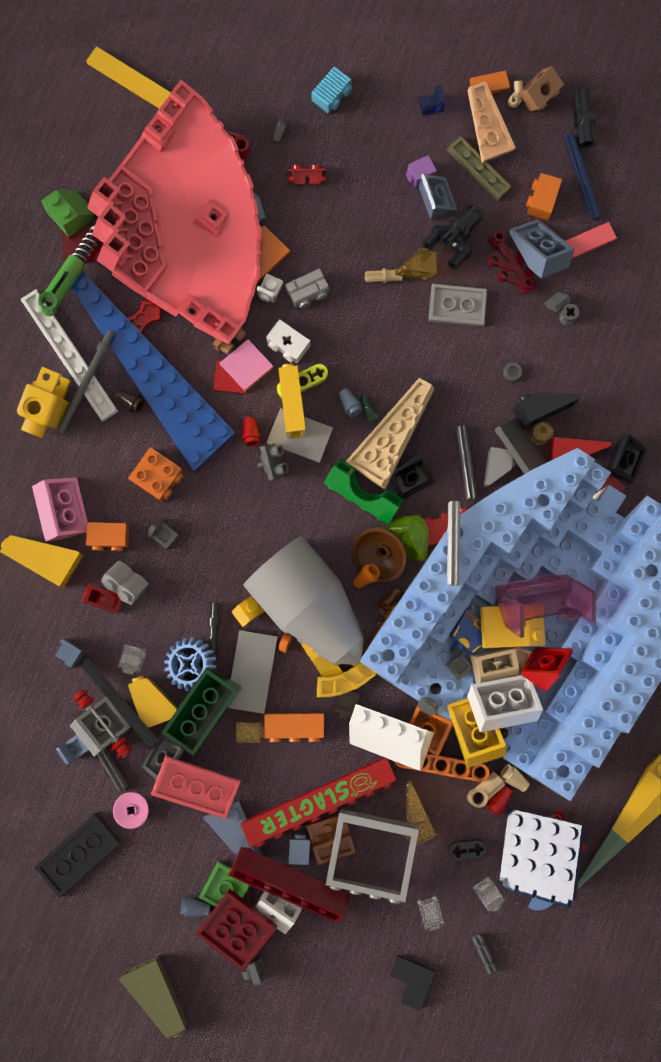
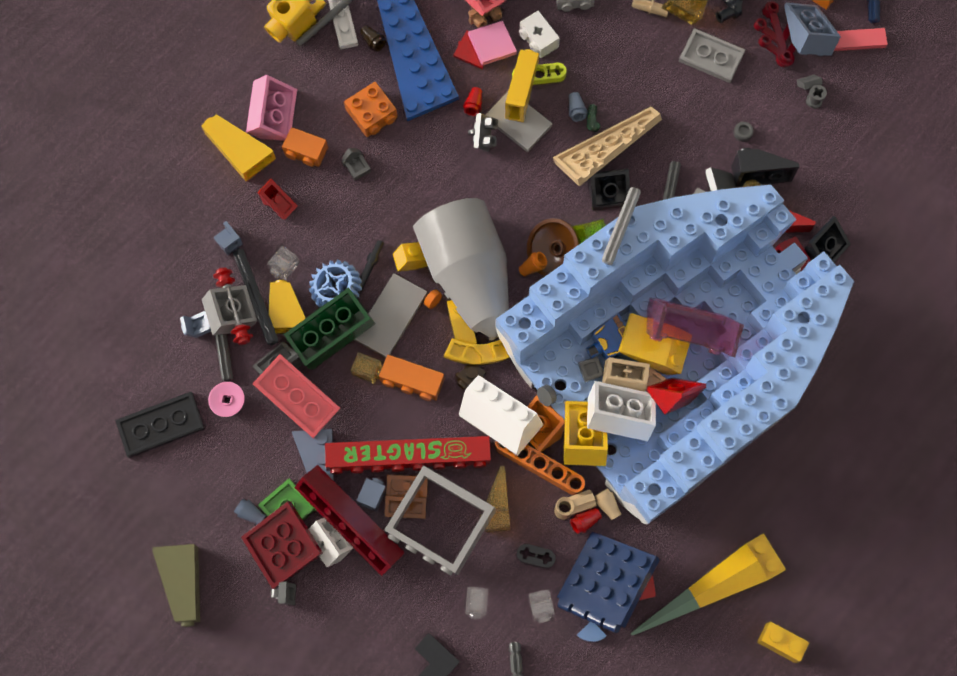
camera: 25 degrees right, 10 degrees down
(124, 582) = (303, 192): light grey brick -> none
(343, 480) = (544, 170): green arch -> none

